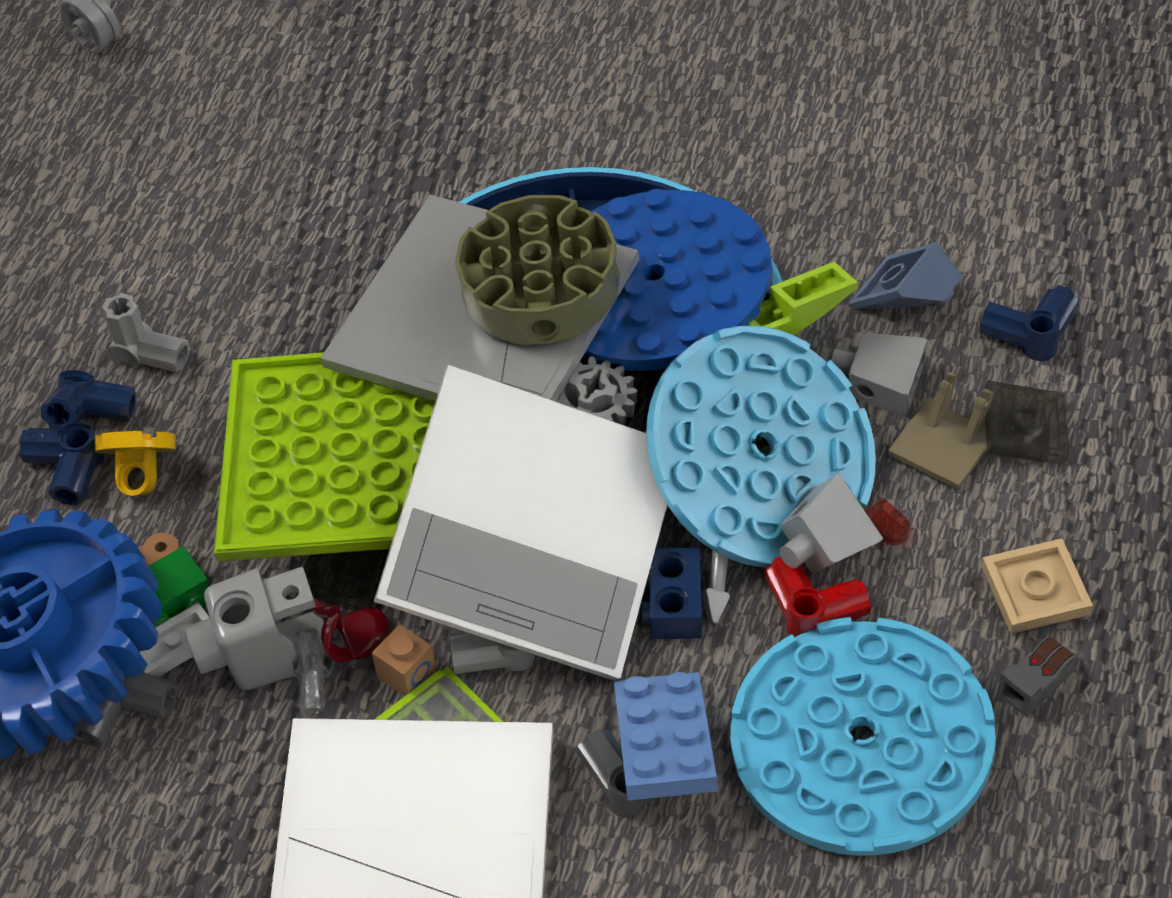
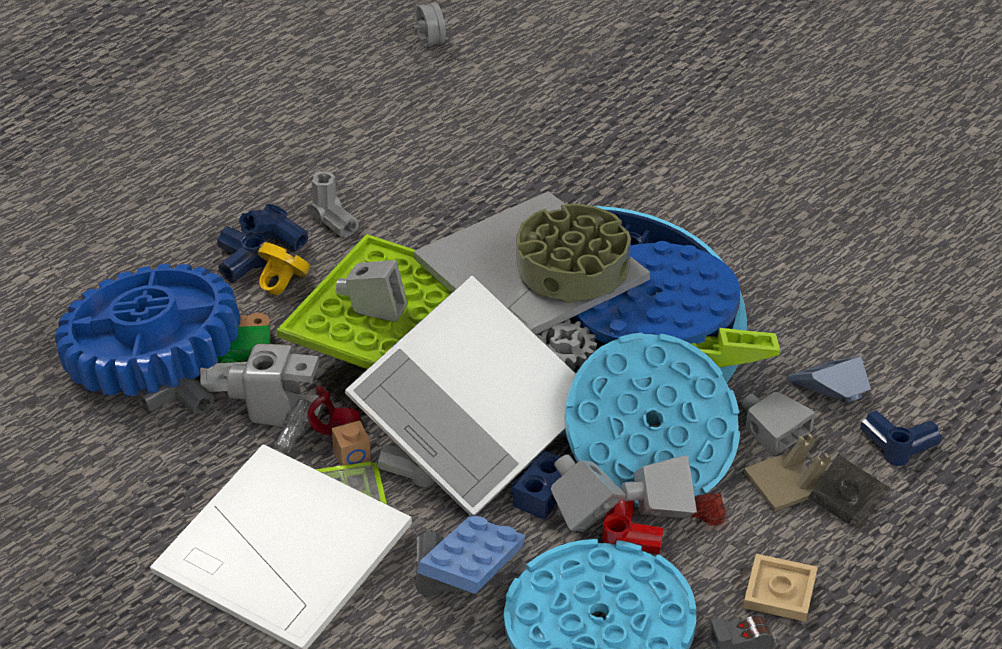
camera: 25 degrees right, 10 degrees down
(316, 438) = (375, 289): none -> light grey torso
(742, 582) = (583, 493): none -> light grey torso

